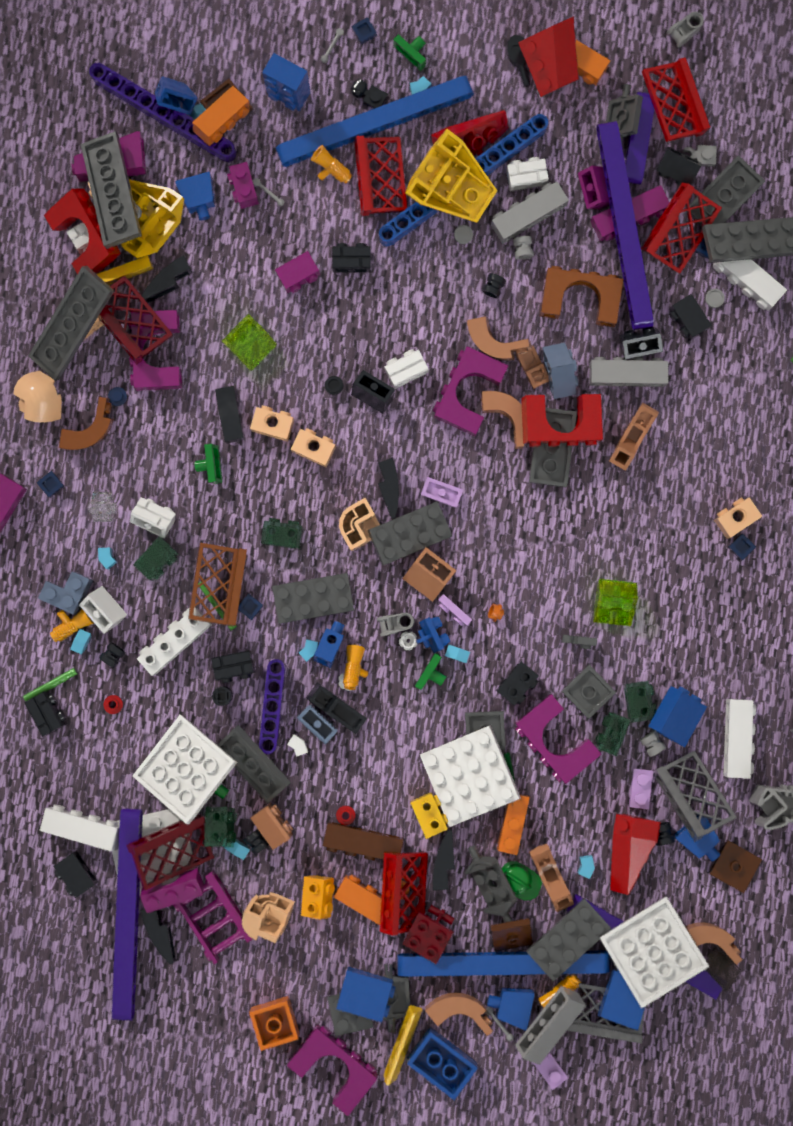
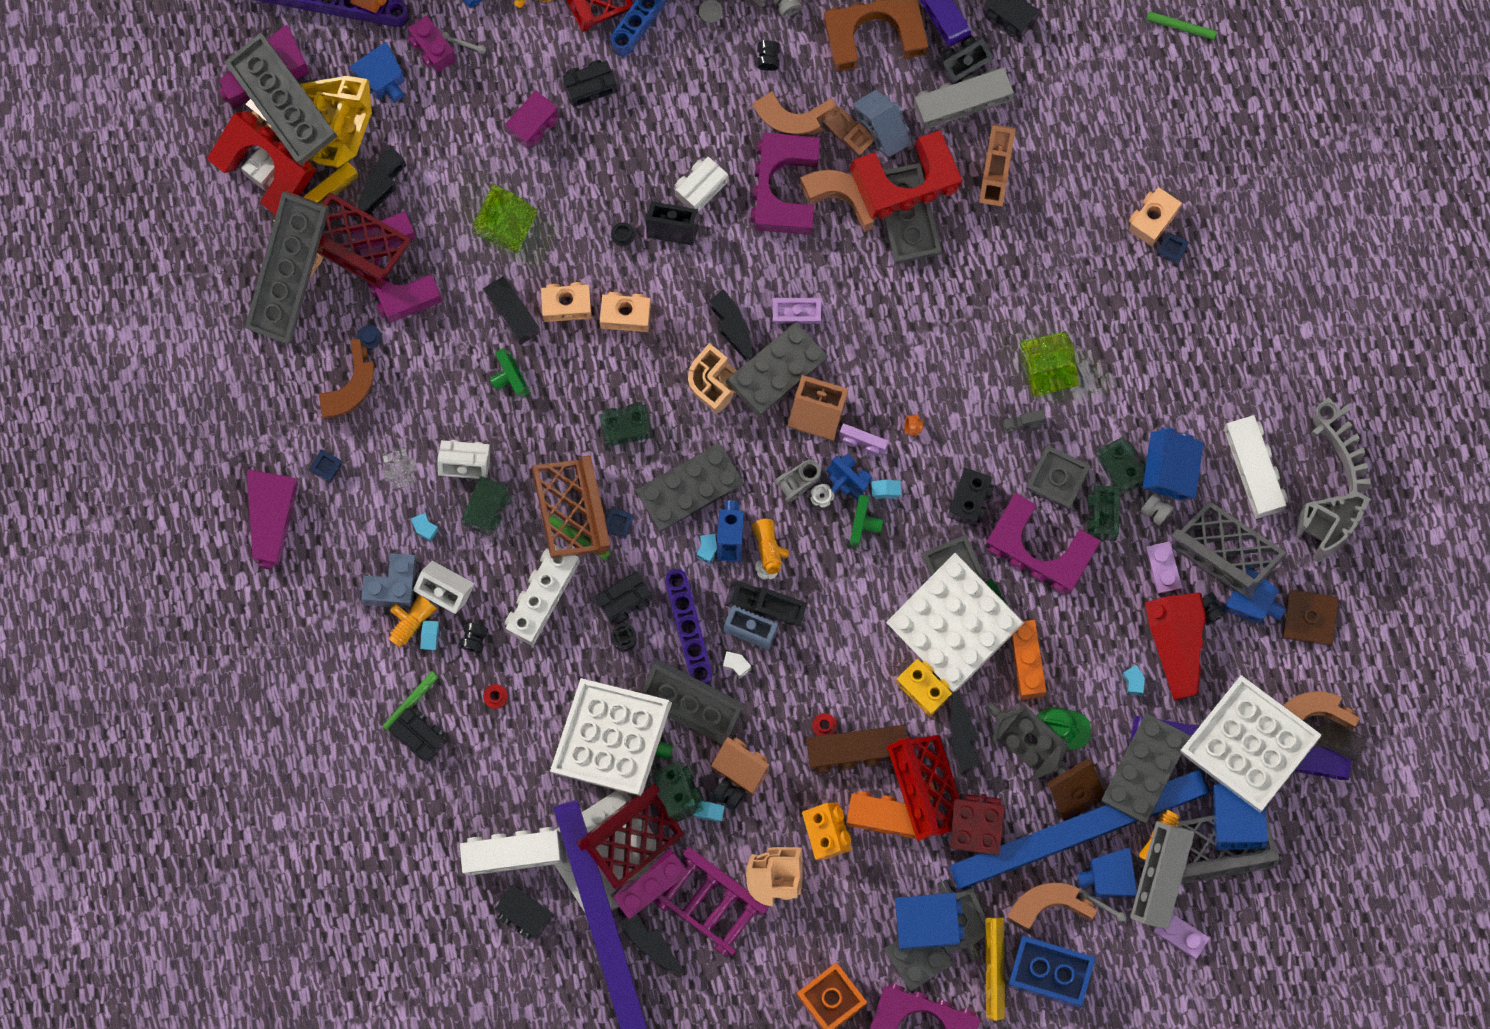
camera: 20 degrees left, 10 degrees down
(38, 397) = (277, 368): light nougat brick -> none
(551, 877) = (1095, 706): nougat arch -> none

